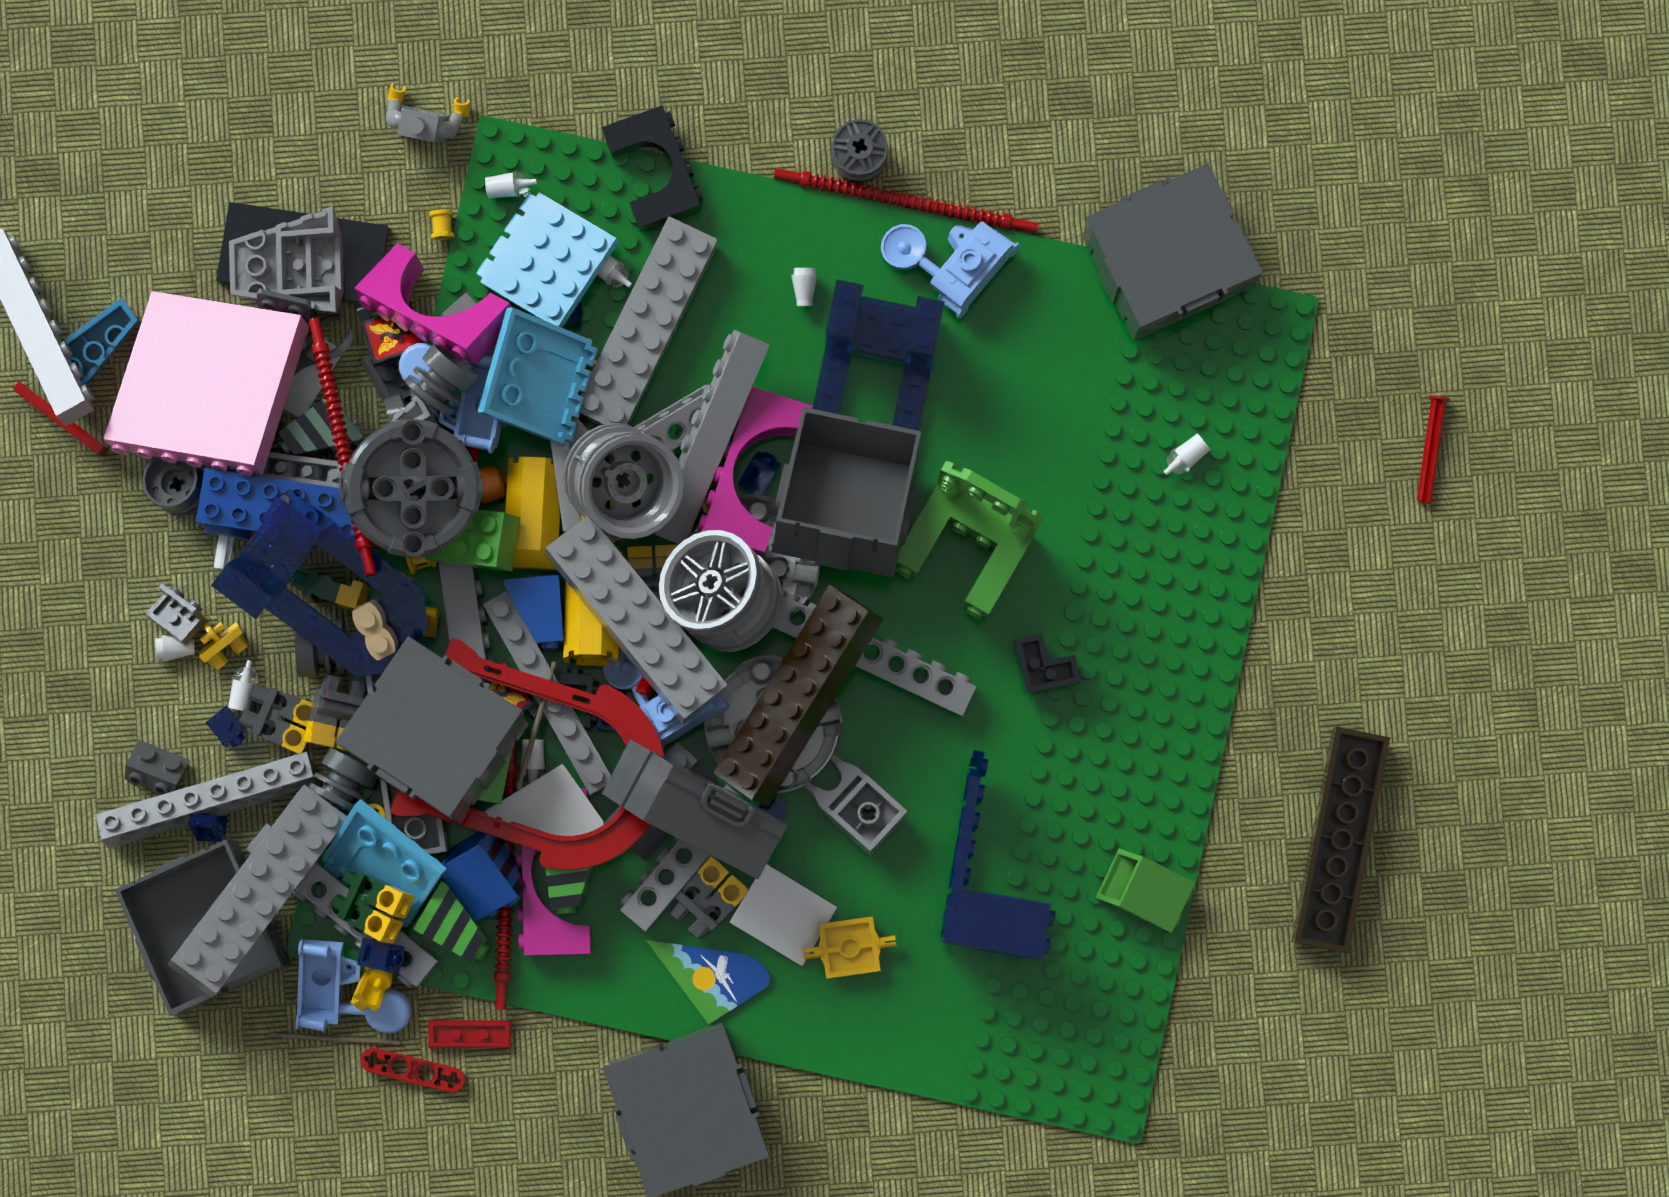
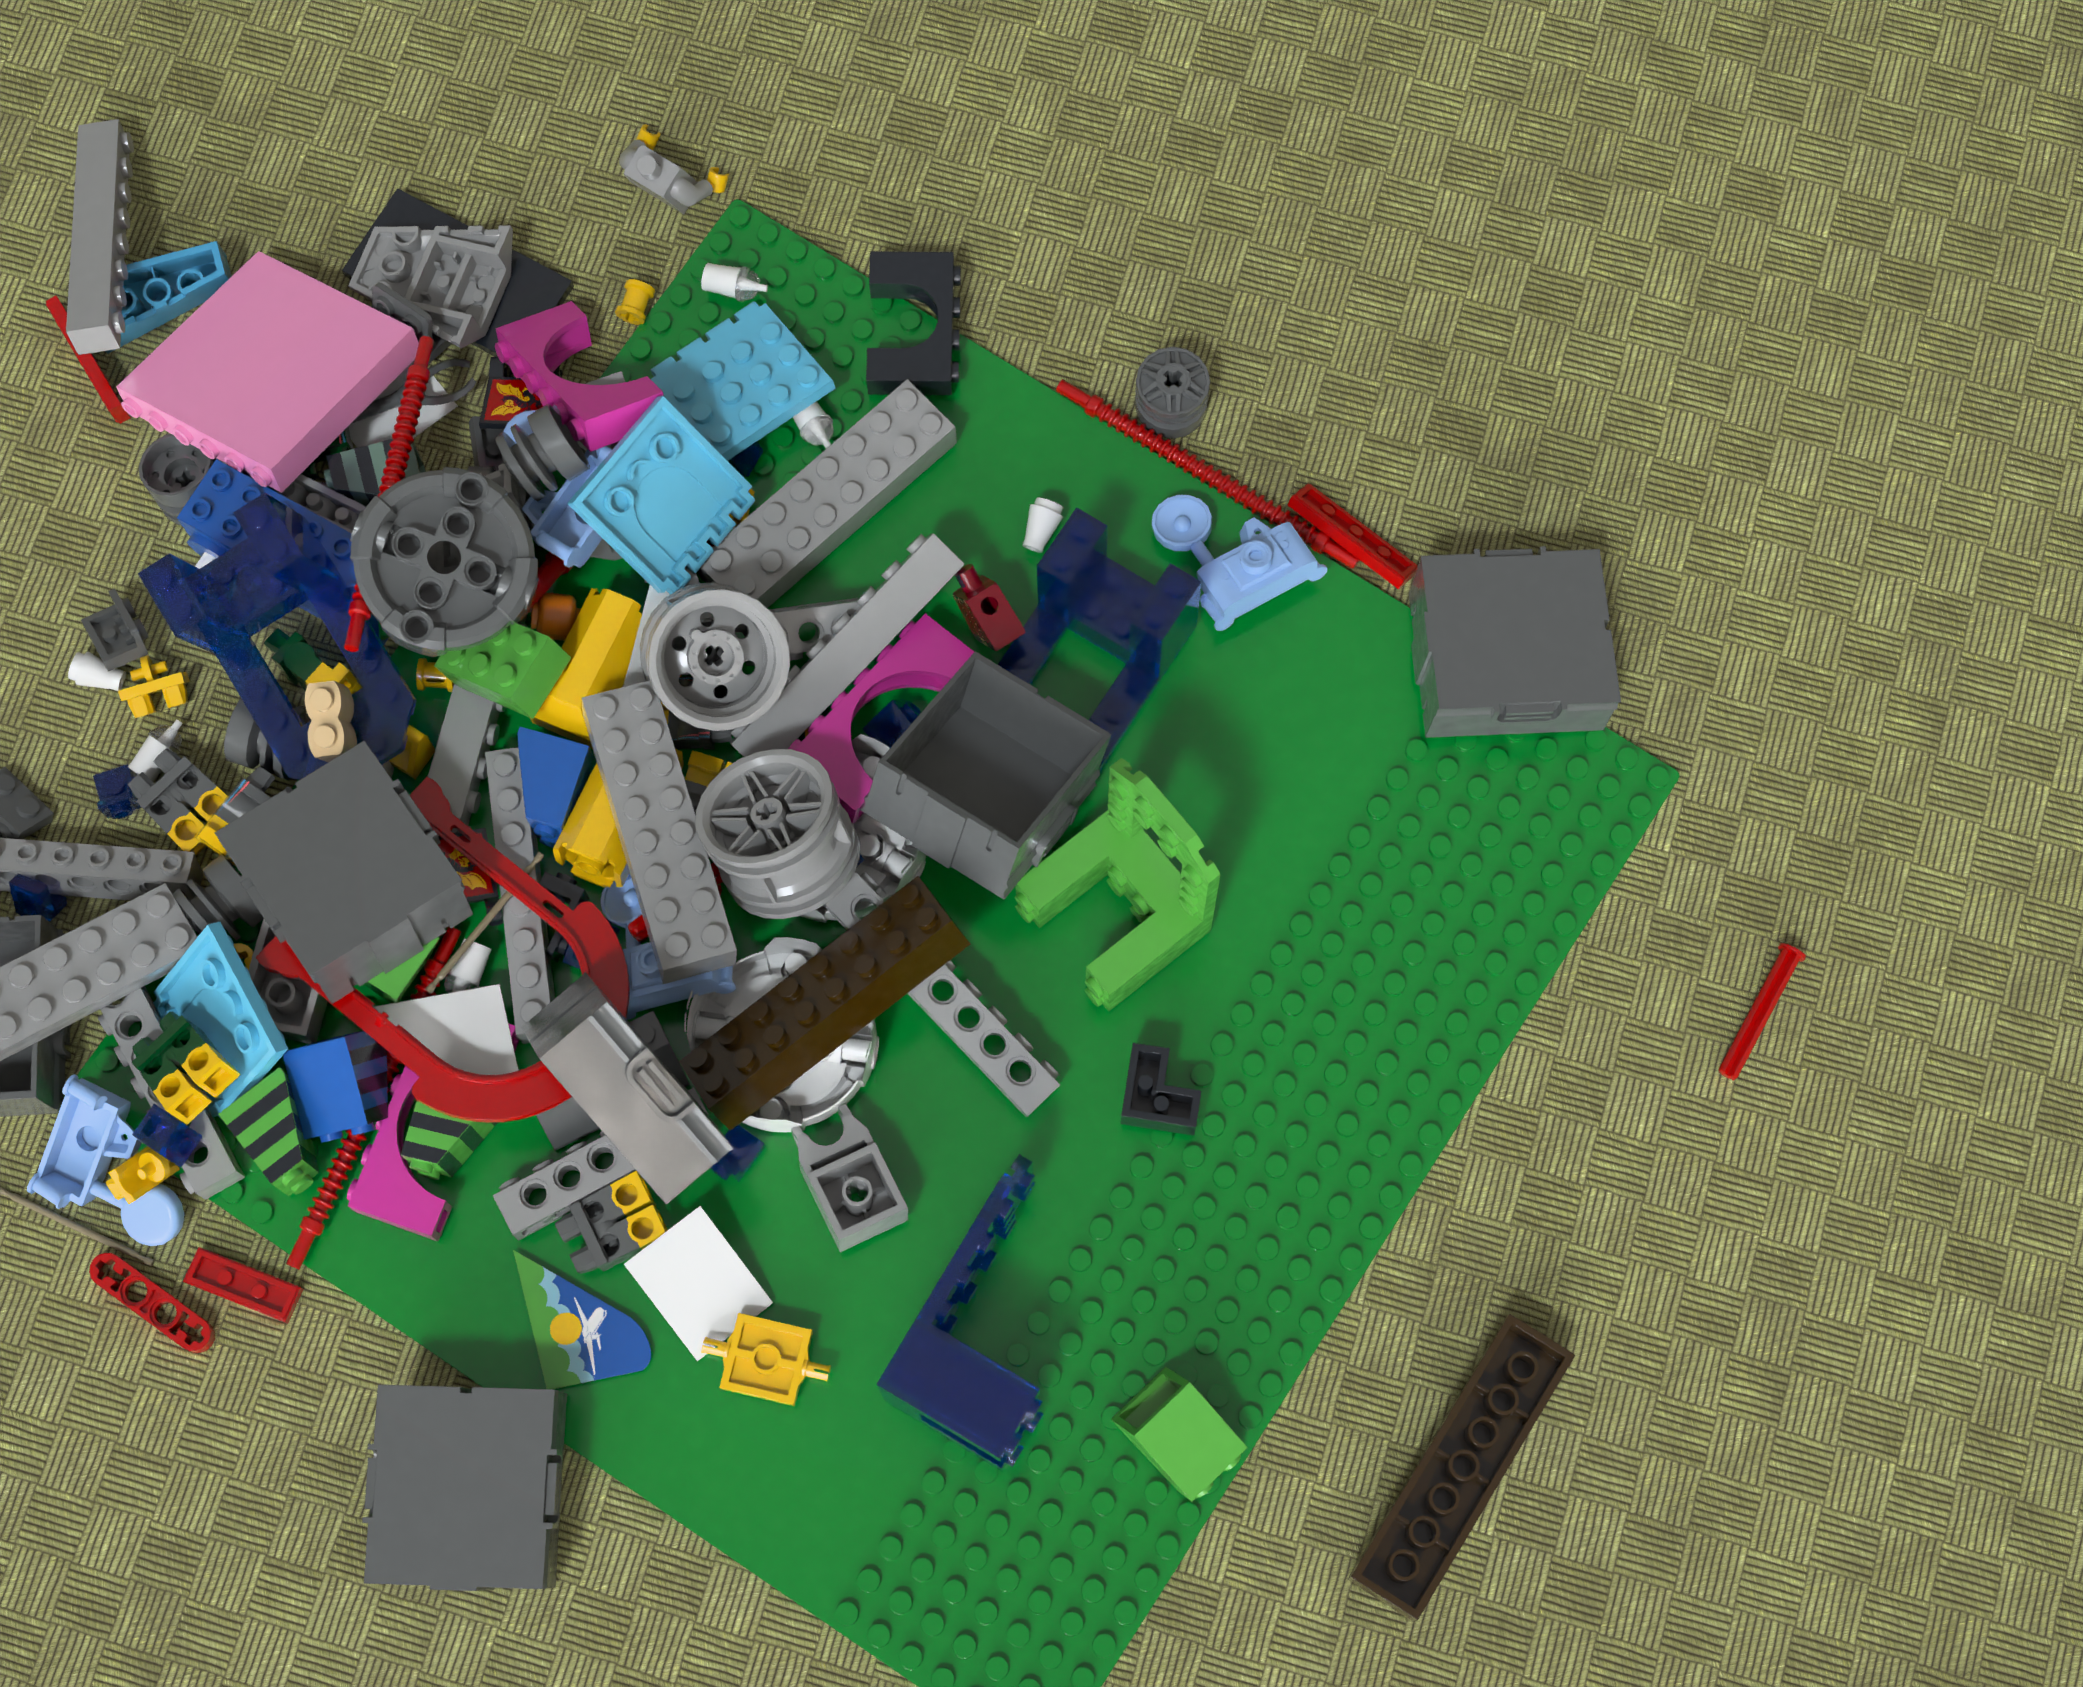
camera: 25 degrees right, 10 degrees down
(795, 368) = (986, 609): none -> dark red torso
(1027, 209) = (1353, 535): none -> red tile
(1186, 455) = (1440, 901): white piece -> none

